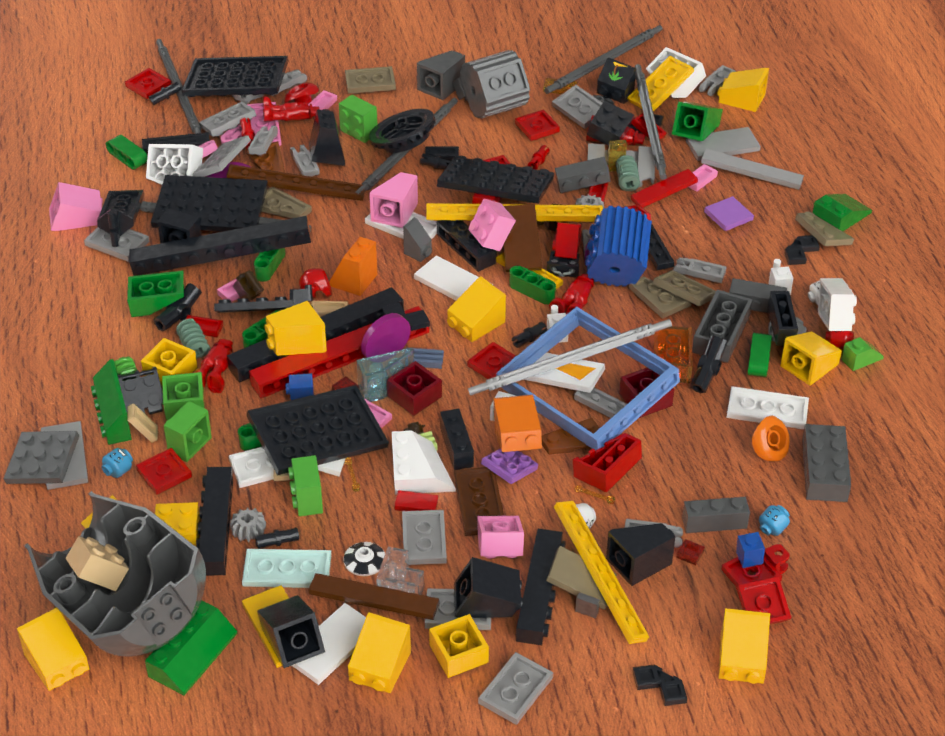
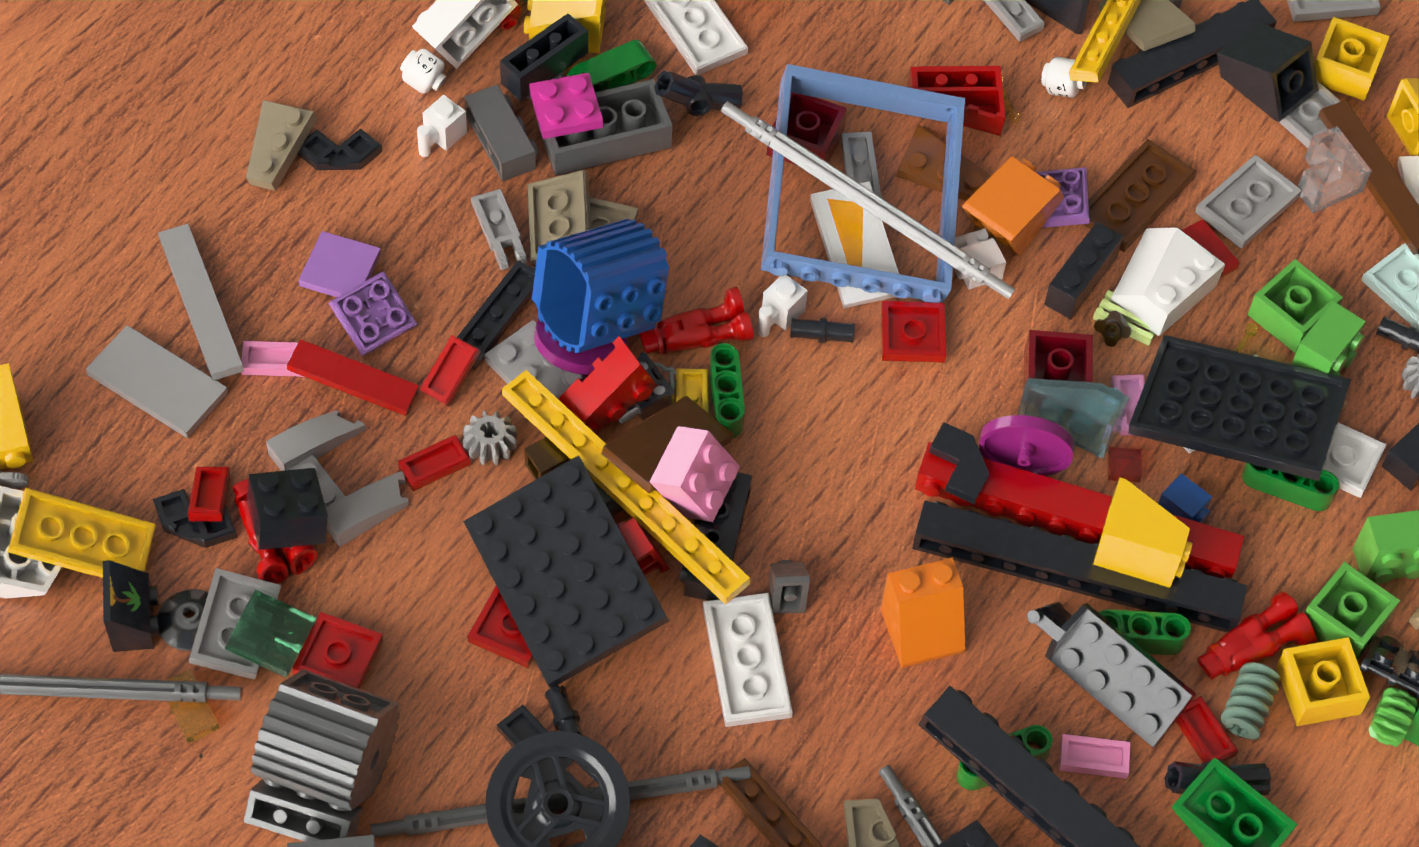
camera: 135 degrees left, 15 degrees up
(248, 286) = (1094, 716): dark brown brick -> none
(318, 280) = (998, 644): red helmet -> none
(325, 307) = (1009, 602): tan tile -> none
(343, 497) = (1292, 304): none -> bright green brick
(364, 558) = (1327, 252): dish -> none
(394, 200) = (742, 661): bright pink slope -> none
(429, 357) = (986, 409): sand blue tile -> none
(445, 277) = (806, 498): white tile -> none
(477, 310) = (854, 405): yellow slope -> none
(500, 536) = (1173, 125): bright pink slope -> none
(539, 157) = (424, 590): red pin -> none
(563, 107) = (270, 633): none -> clear green slope
(582, 174) = (427, 487): dark grey brick -> none
(615, 151) = (342, 467): clear yellow tile -> none
(627, 173) = (364, 436): sand green piece -> none
(650, 122) = (206, 482): dark grey axle -> none
(675, 347) = (708, 148): clear orange brick -> none
(691, 208) = (373, 313): none -> medium lavender tile
(696, 120) = (142, 427): green slope -> none
(741, 304) = (566, 105): none -> dark pink plate
(840, 210) = (209, 144): green slope -> none

